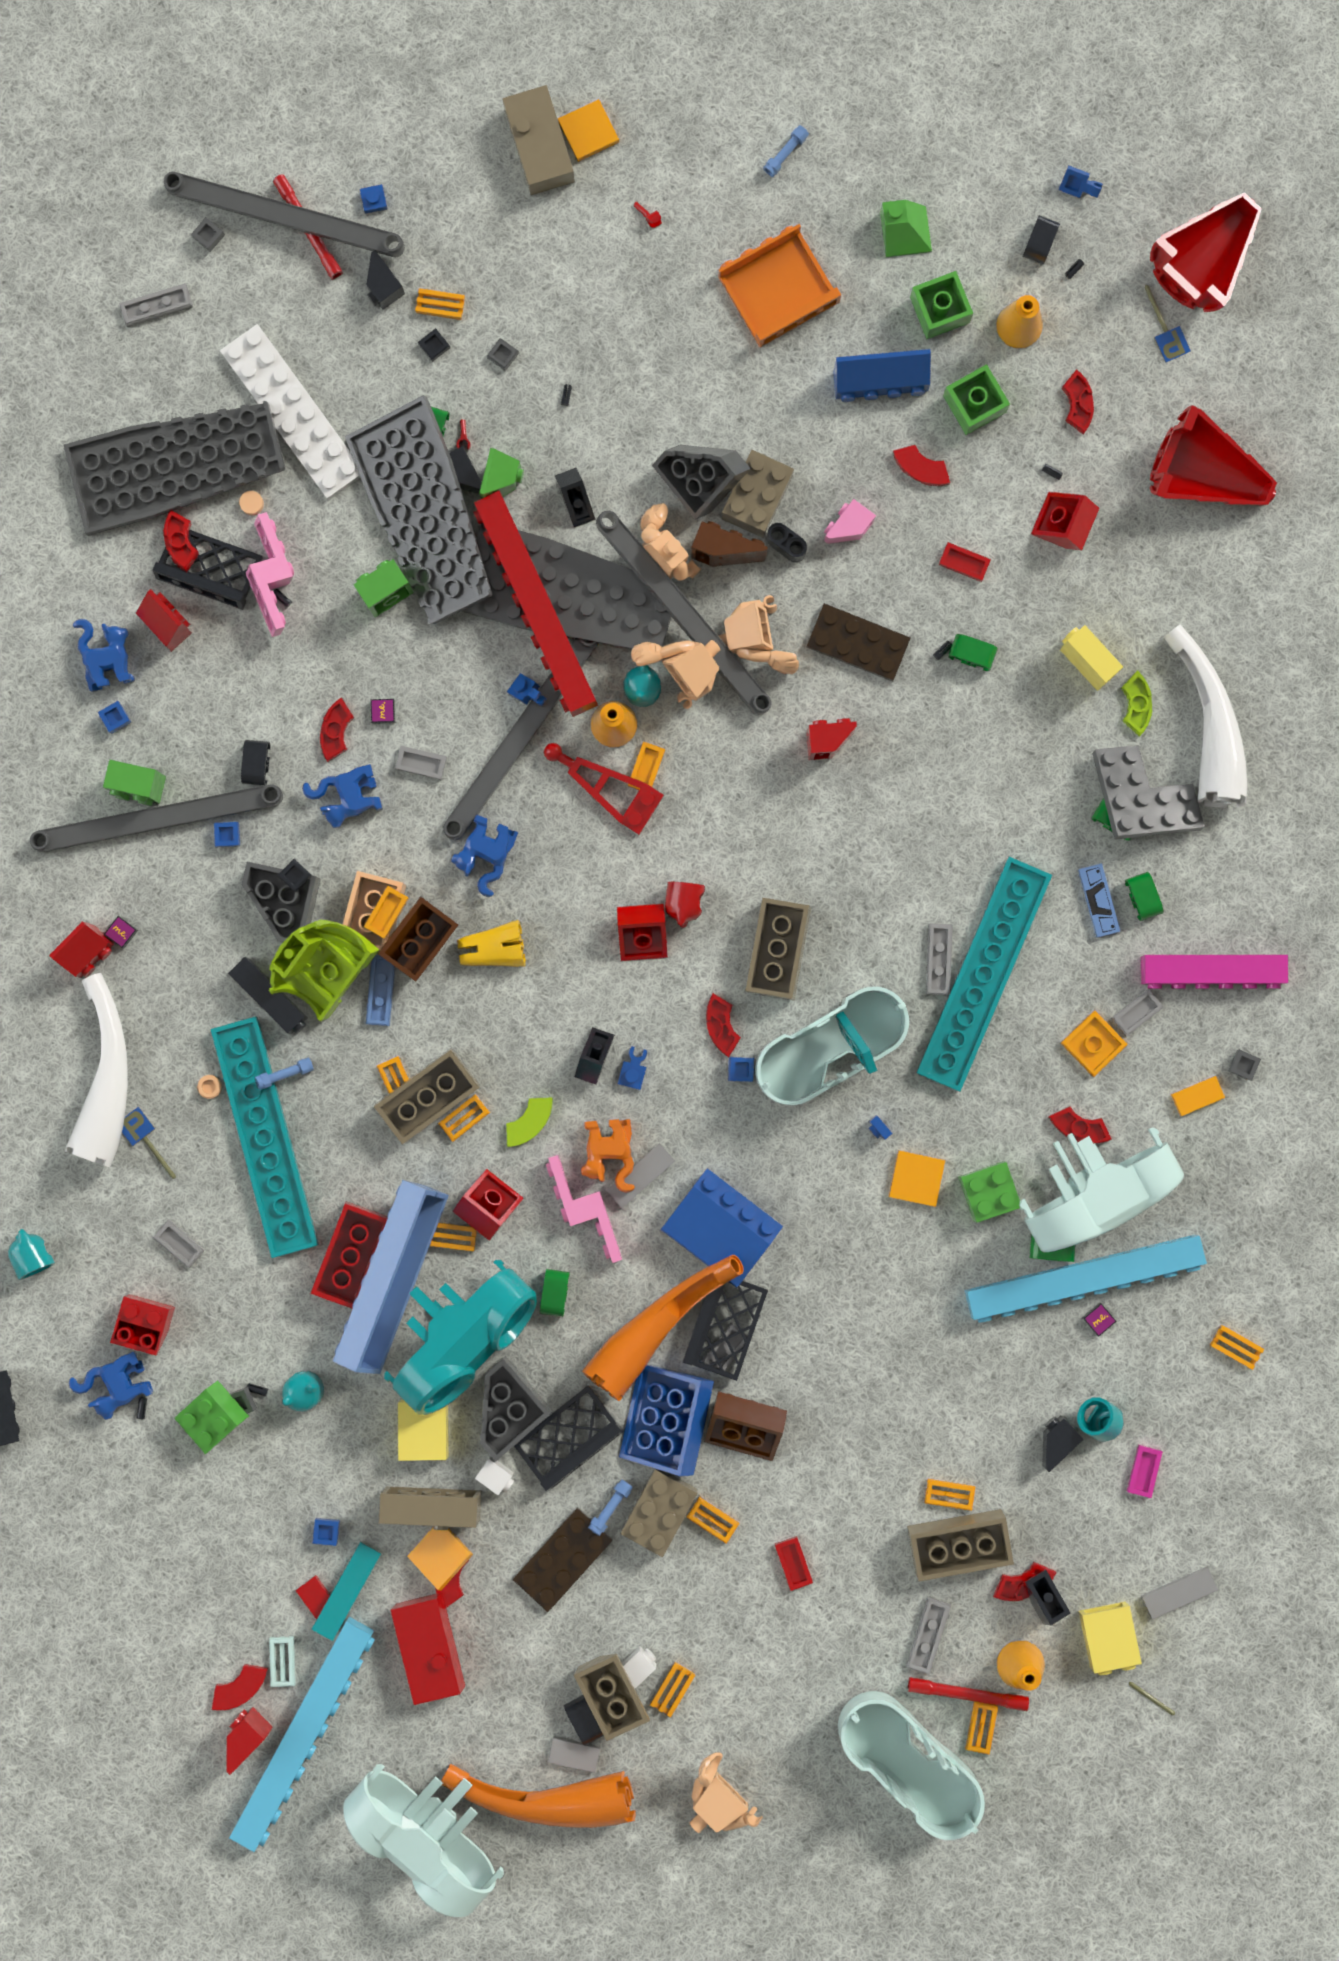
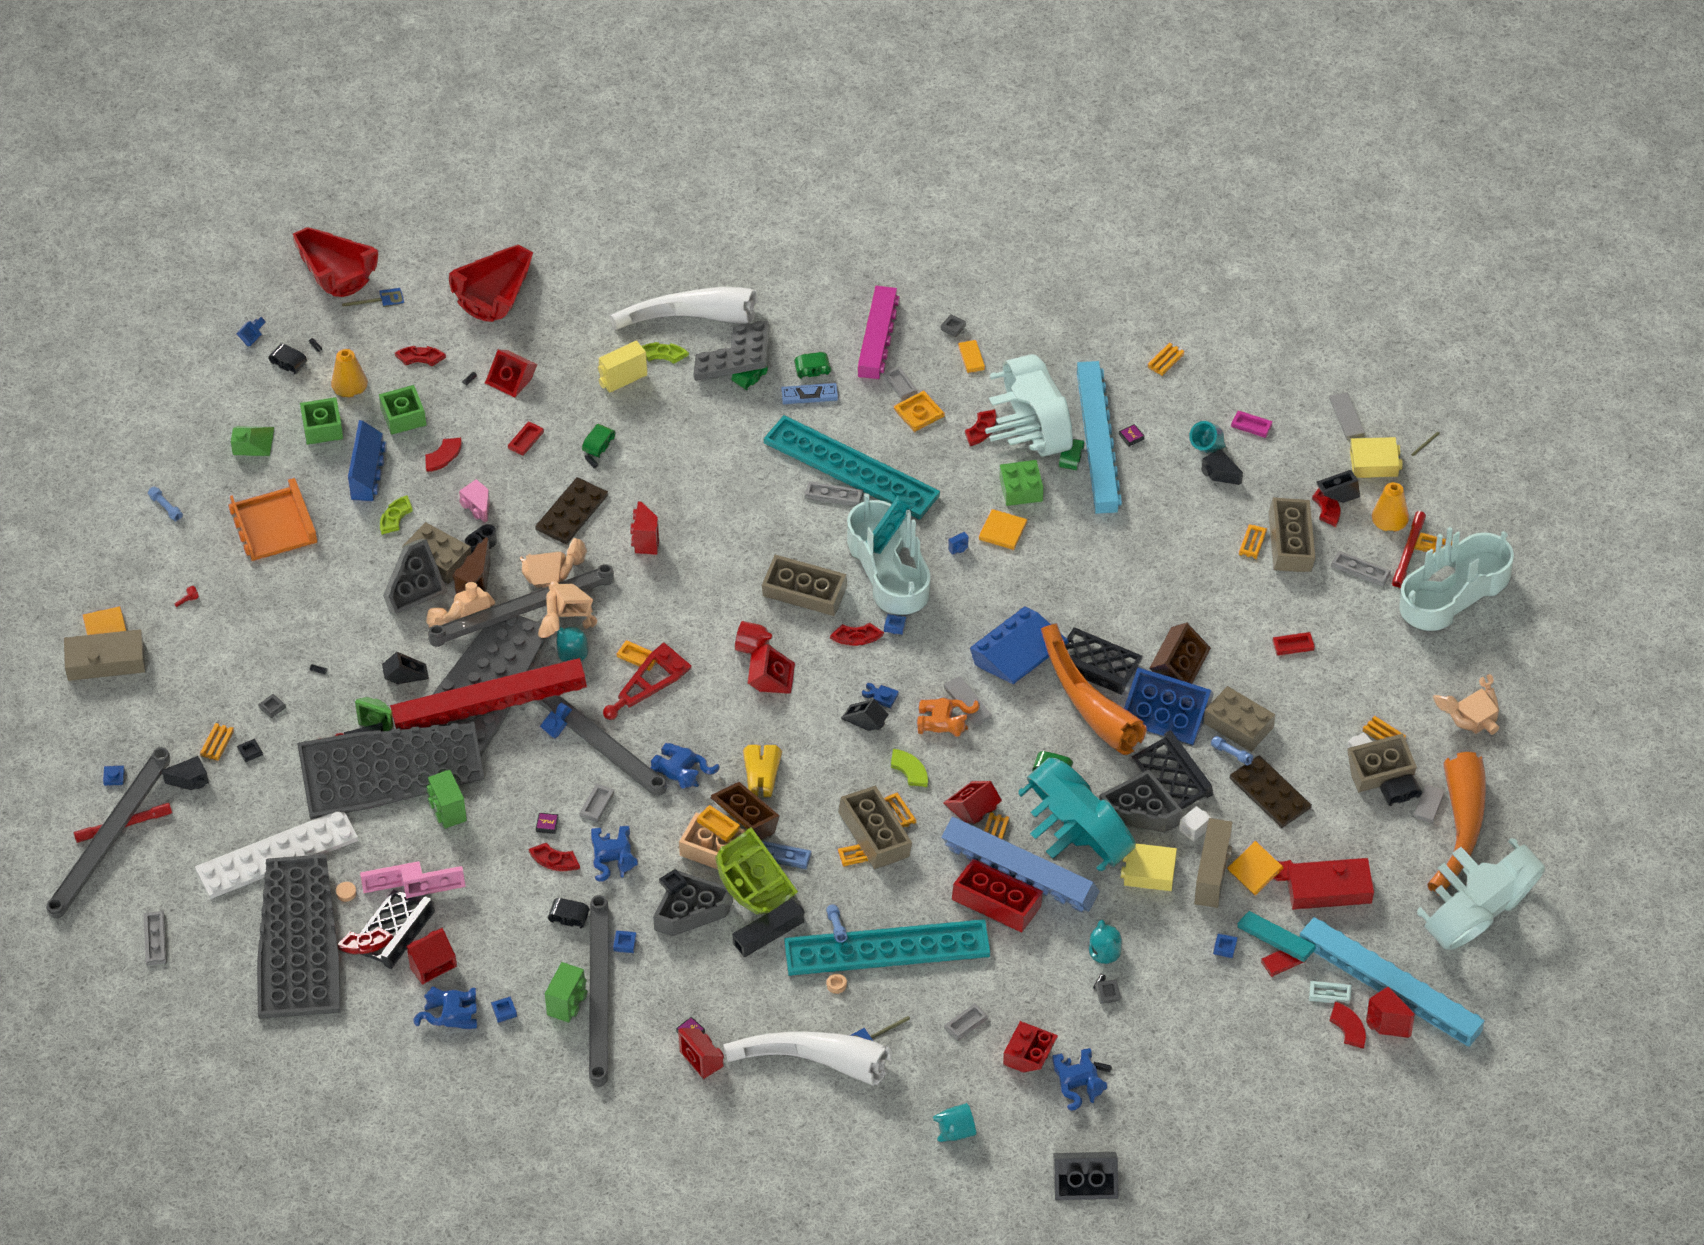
camera: 85 degrees left, 35 degrees down
(207, 234) = (107, 891): dark grey plate -> none
(211, 1417) = (1116, 1006): bright green brick -> none
(583, 1209) = (987, 737): bright pink bracket -> none
(614, 731) = (597, 665): light orange cone -> none
(700, 1501) = (1260, 692): light orange tile -> none
(816, 428) = (395, 512): none -> lime tile

